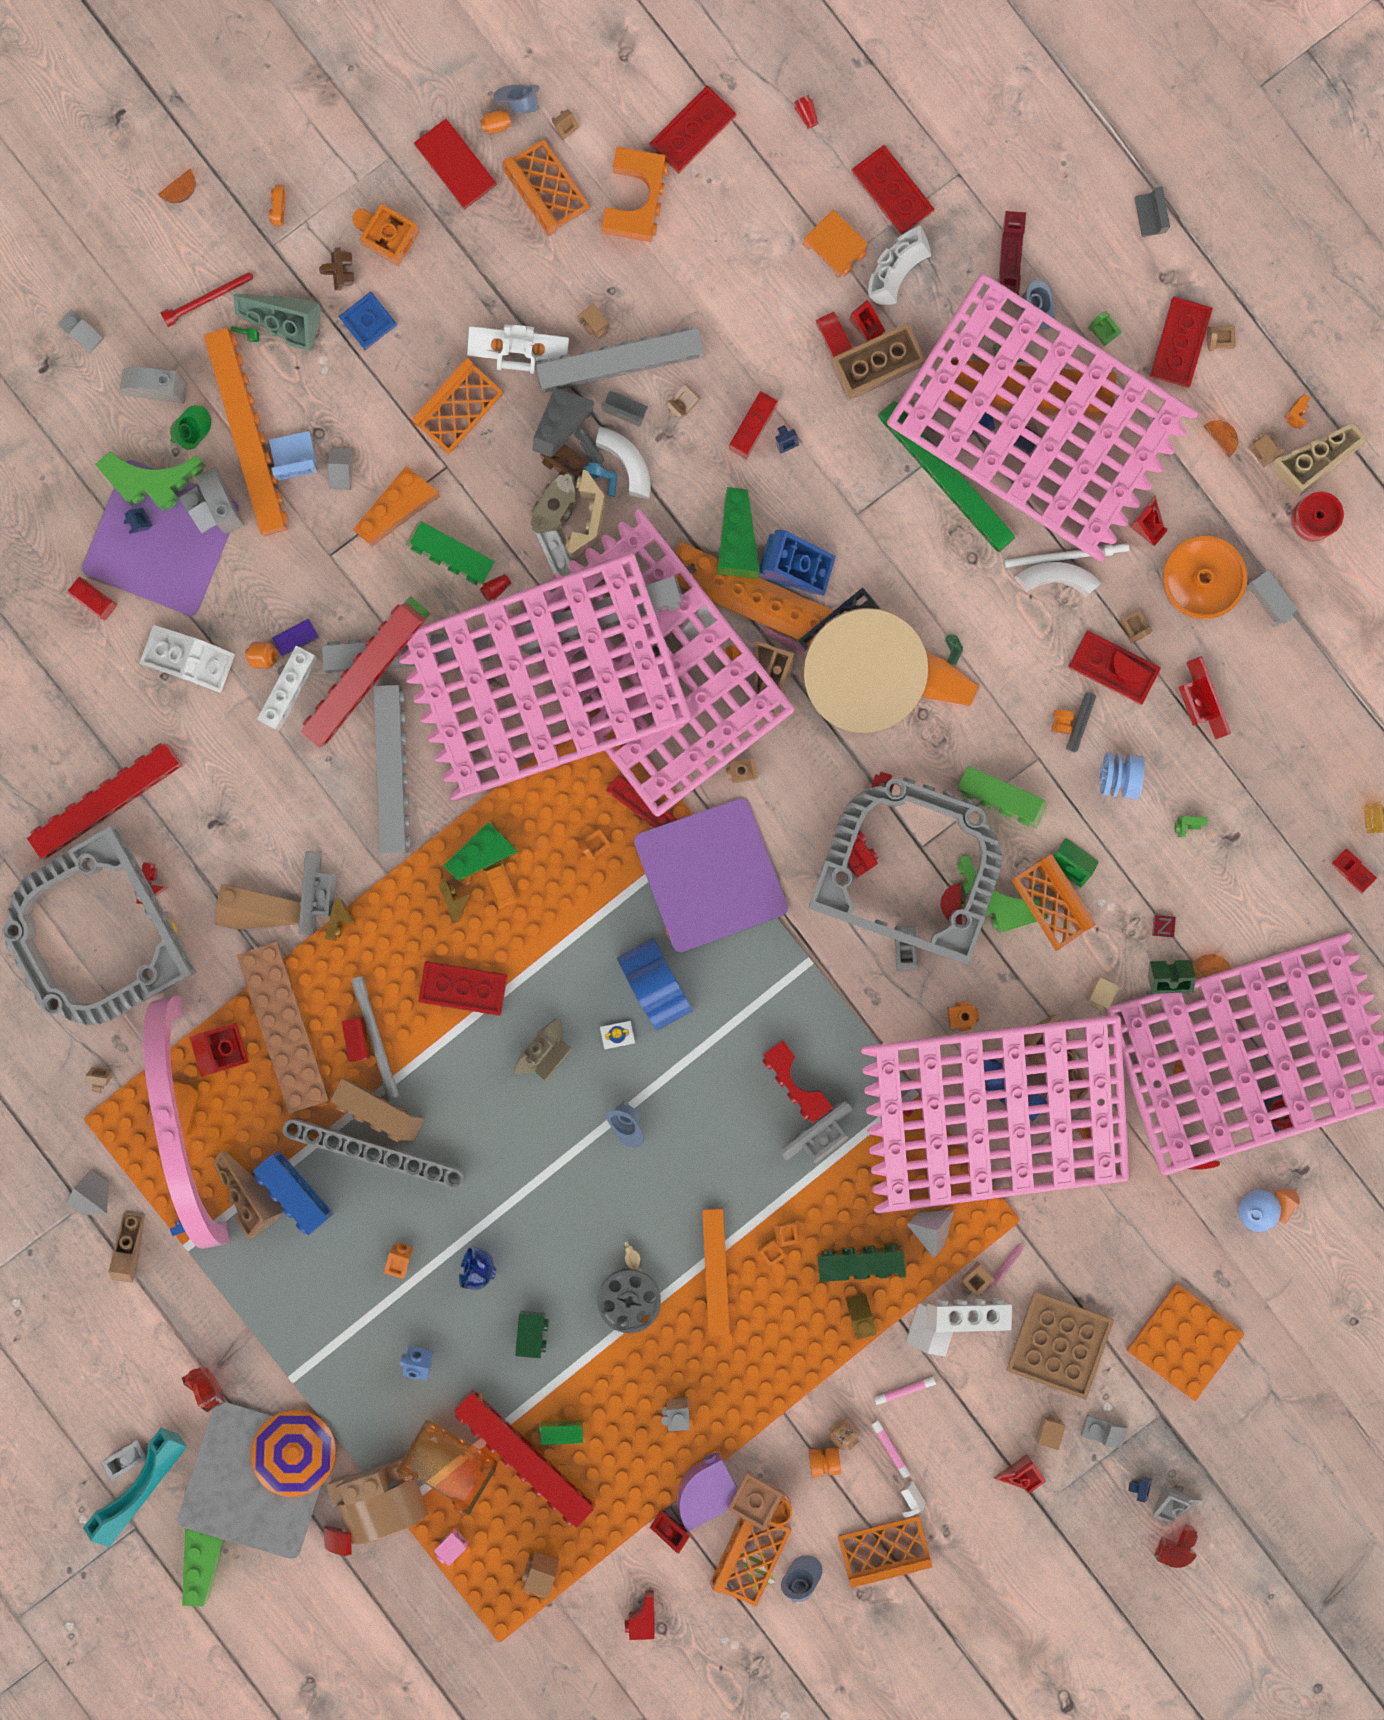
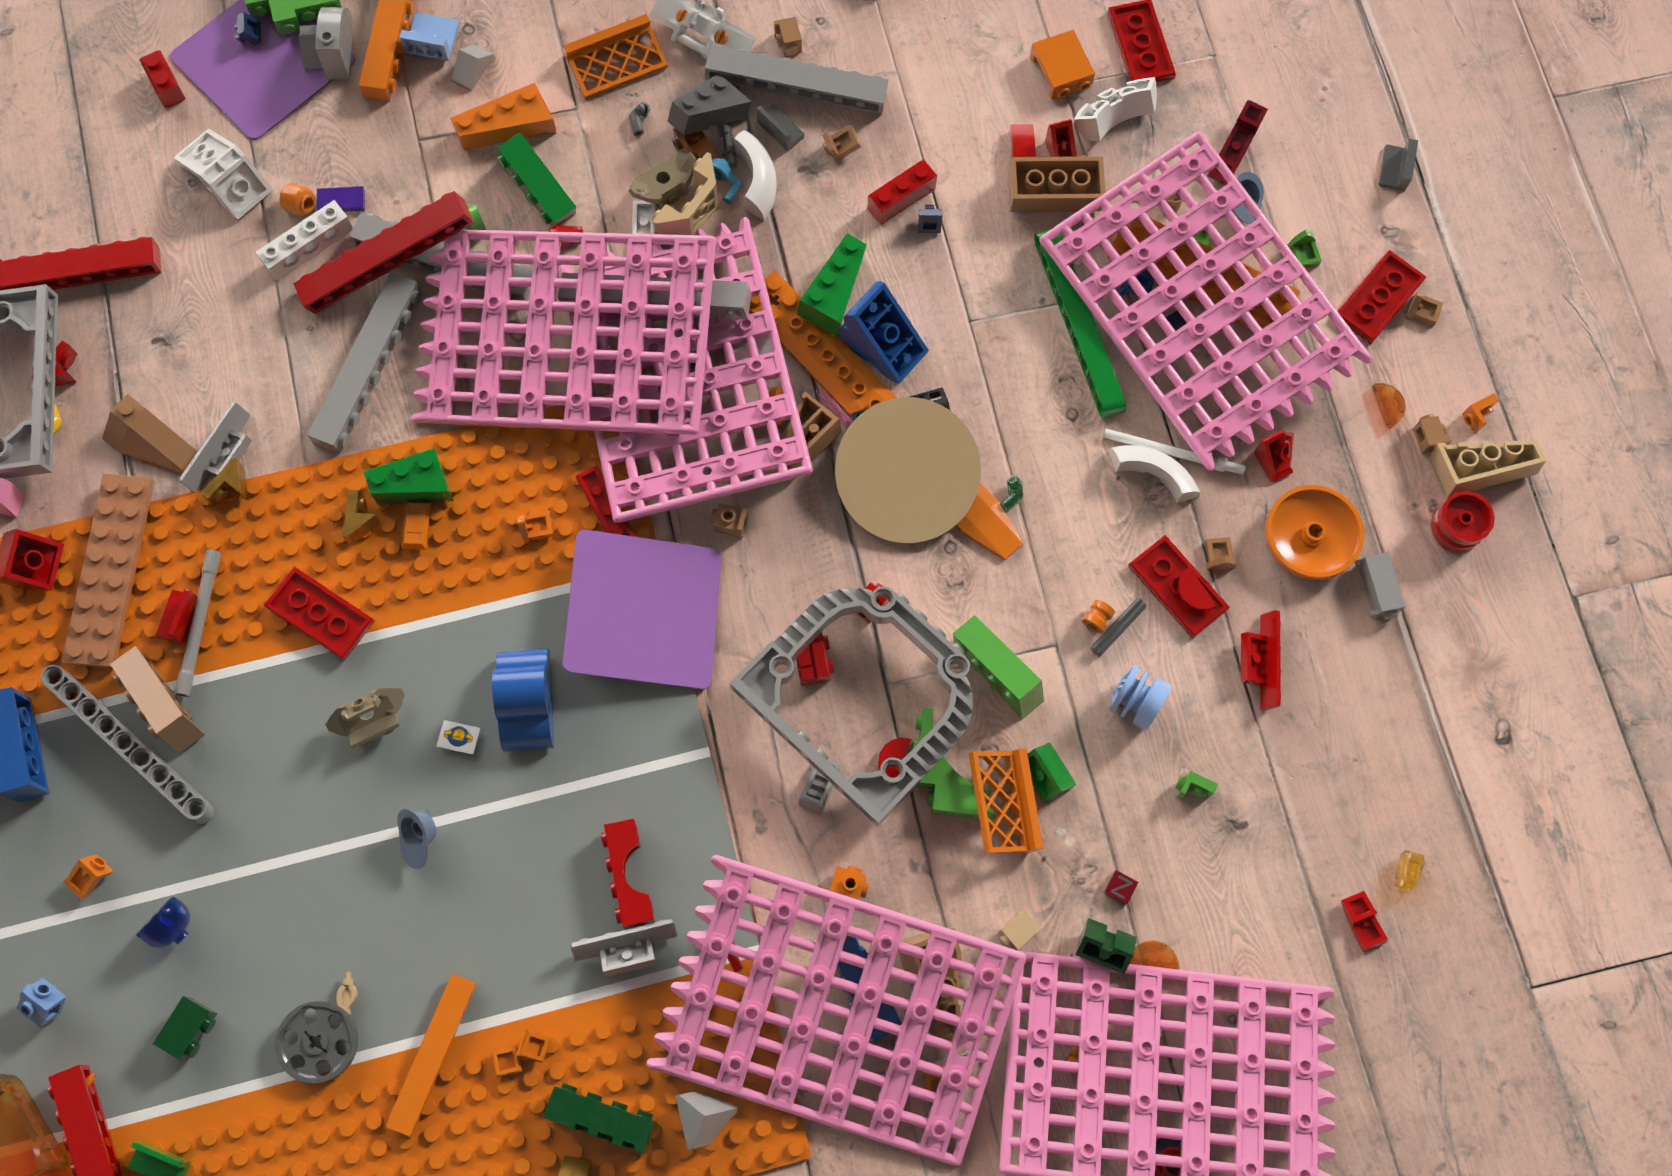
camera: 20 degrees right, 15 degrees down
(501, 453) = (637, 116): none -> dark grey arm

